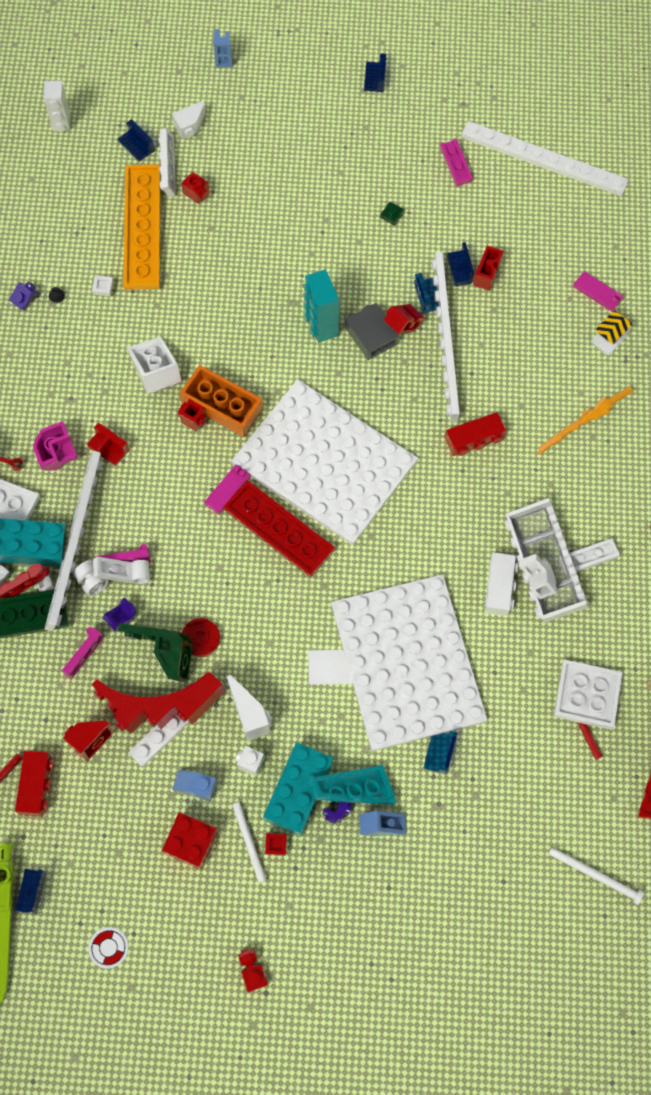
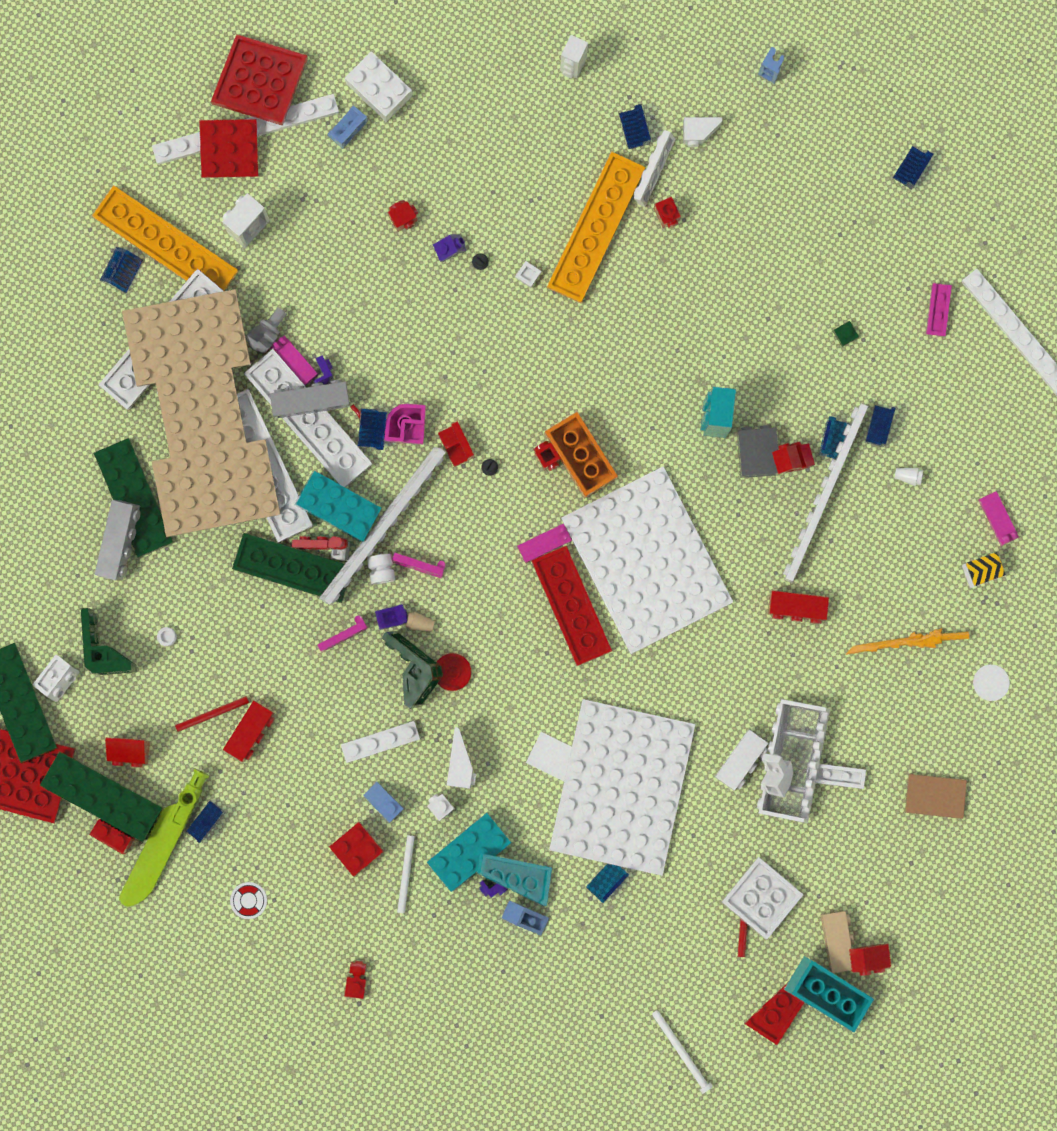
camera: 25 degrees right, 15 degrees up
(25, 465) = (372, 428): none -> clear blue panel
(88, 737) = (310, 717): red slope -> none
(122, 571) = (411, 577): white plate -> none
(146, 450) = (489, 467): none -> black piece
(148, 608) = (419, 622): none -> tan cone
(154, 365) = (537, 383): white slope -> none
(187, 704) = (384, 724): red arch -> none
(275, 844) = (426, 888): red plate -> none
(488, 268) = (909, 438): red brick -> none
(508, 291) = (909, 475): none -> white cone

